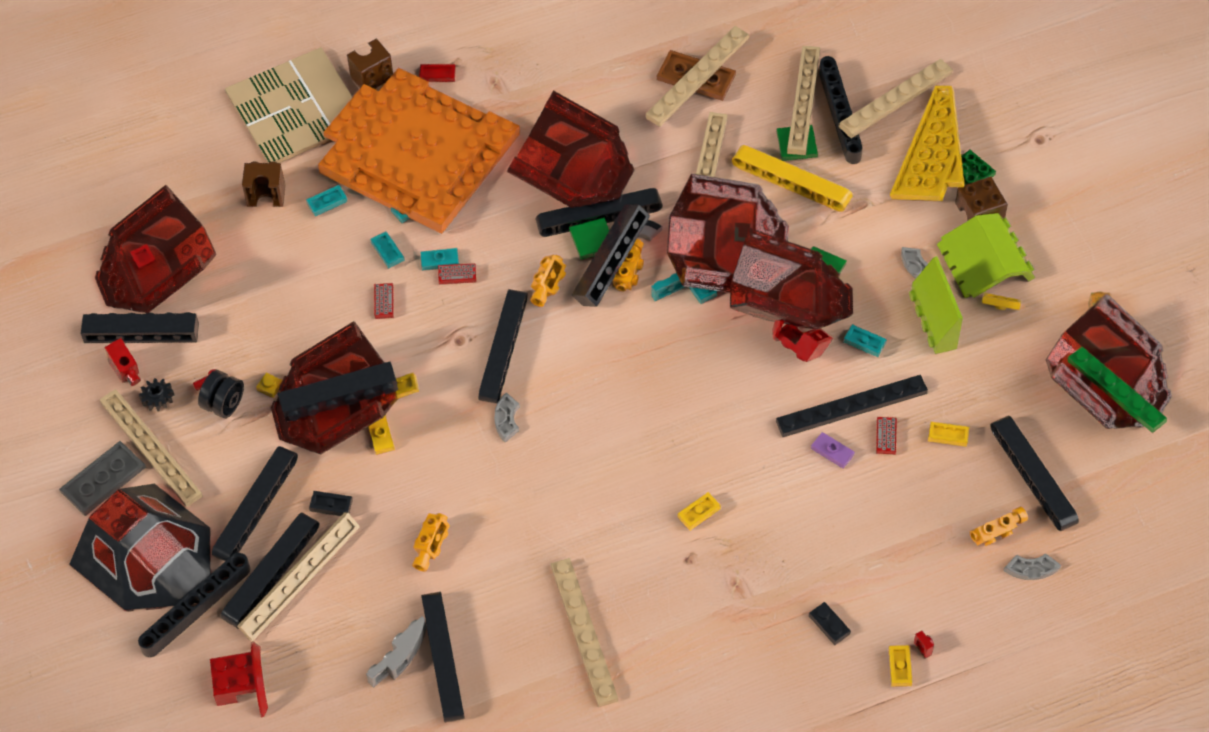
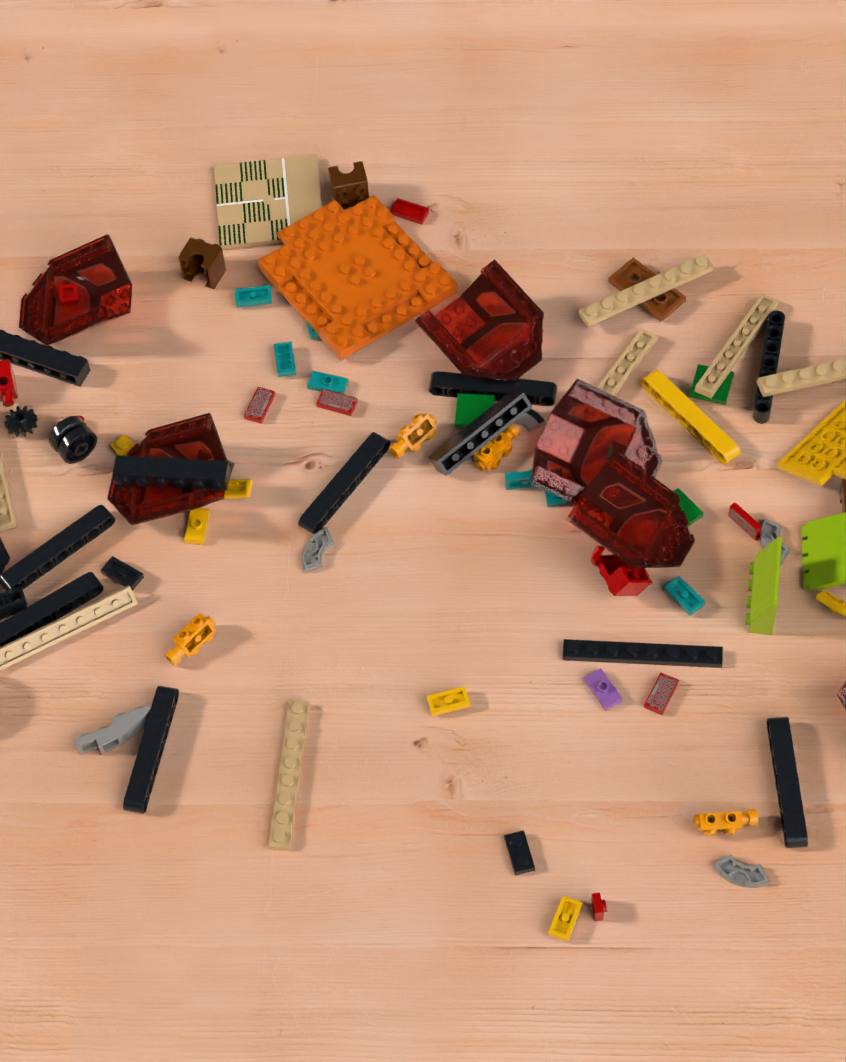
camera: 25 degrees right, 0 degrees up
(886, 255) = (745, 521): none -> red tile
(948, 434) = (721, 714): yellow plate -> none

